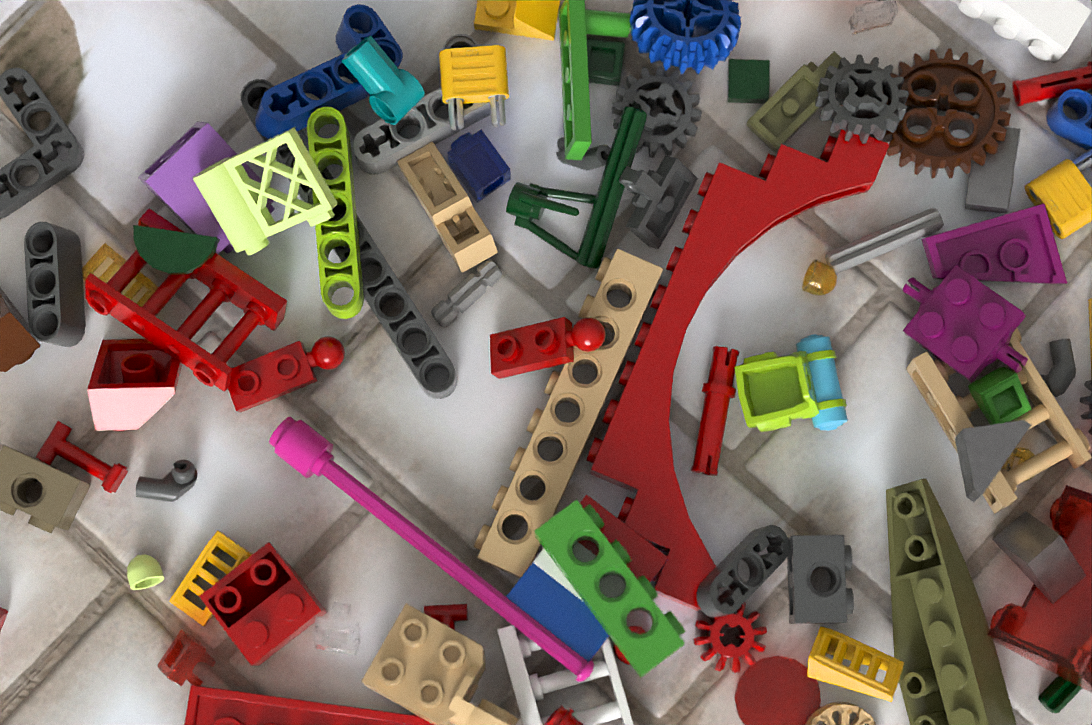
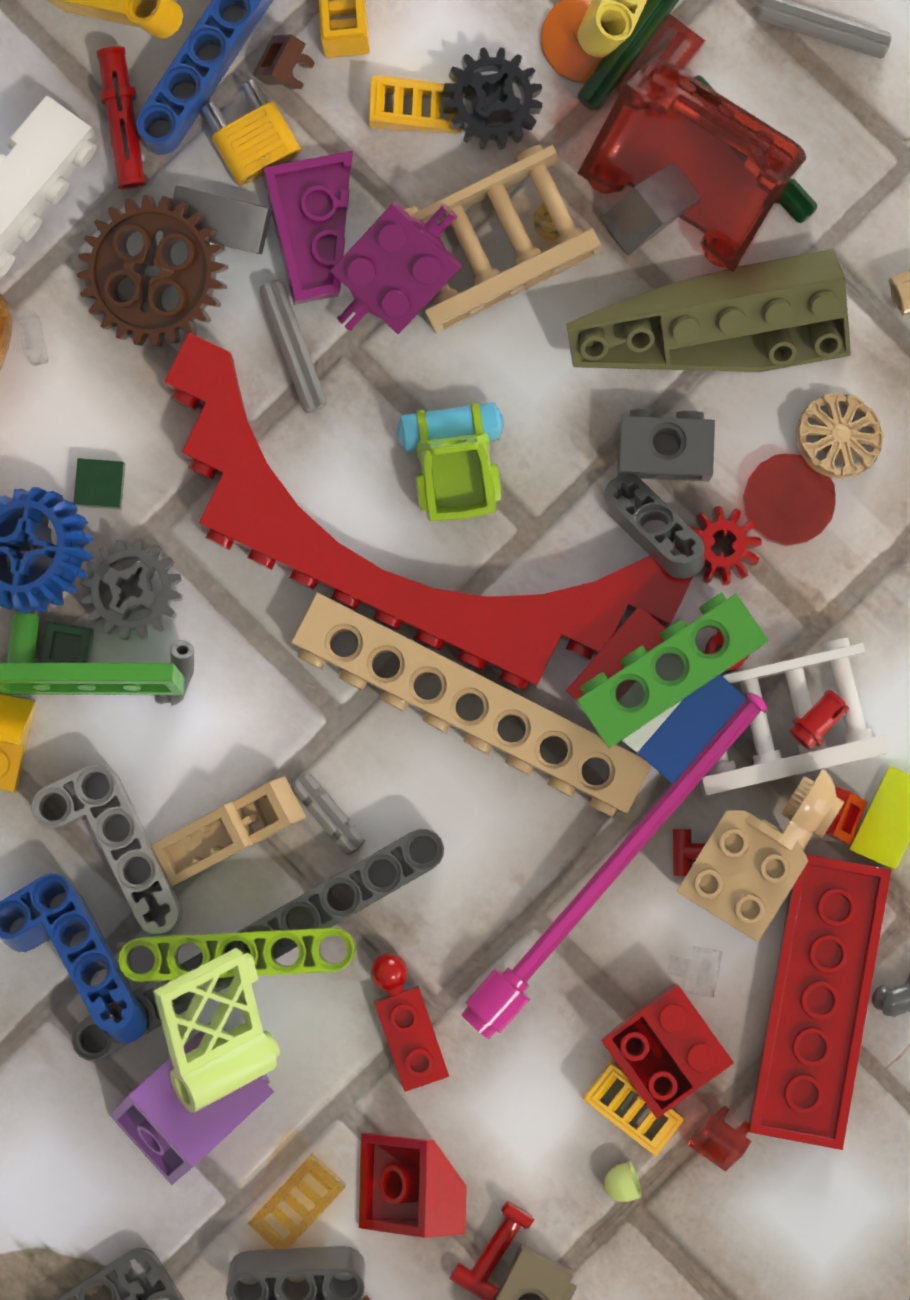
camera: 85 degrees left, 5 degrees up
(172, 486) = (529, 1151): dark grey arm -> none
(173, 250) = (270, 1139): dark green tile -> none
(225, 284) = (278, 1122): red fence -> none
(390, 89) = (96, 887): teal piece -> none
(474, 77) = (86, 792): yellow piece -> none
(478, 164) = (181, 794): clear blue brick -> none
(530, 202) = (229, 739): dark green plant -> none
(542, 345) = (395, 730): red plate -> none
(610, 189) = (219, 644): dark green axle -> none
(657, 198) = (233, 594): dark grey hinge -> none
(715, 410) = (475, 545): red pin -> none
(790, 105) = (129, 432): olive hinge -> none
(819, 278) = (333, 421): clear yellow hinge -> none
(847, 648) = (739, 422): yellow slope -> none
(861, 99) = (122, 369): dark grey gear -> none
(985, 451) = (544, 258): flat silver slope -> none
(1000, 396) = (479, 236): bright green slope -> none
(1063, 367) = (447, 163): dark grey arm -> none

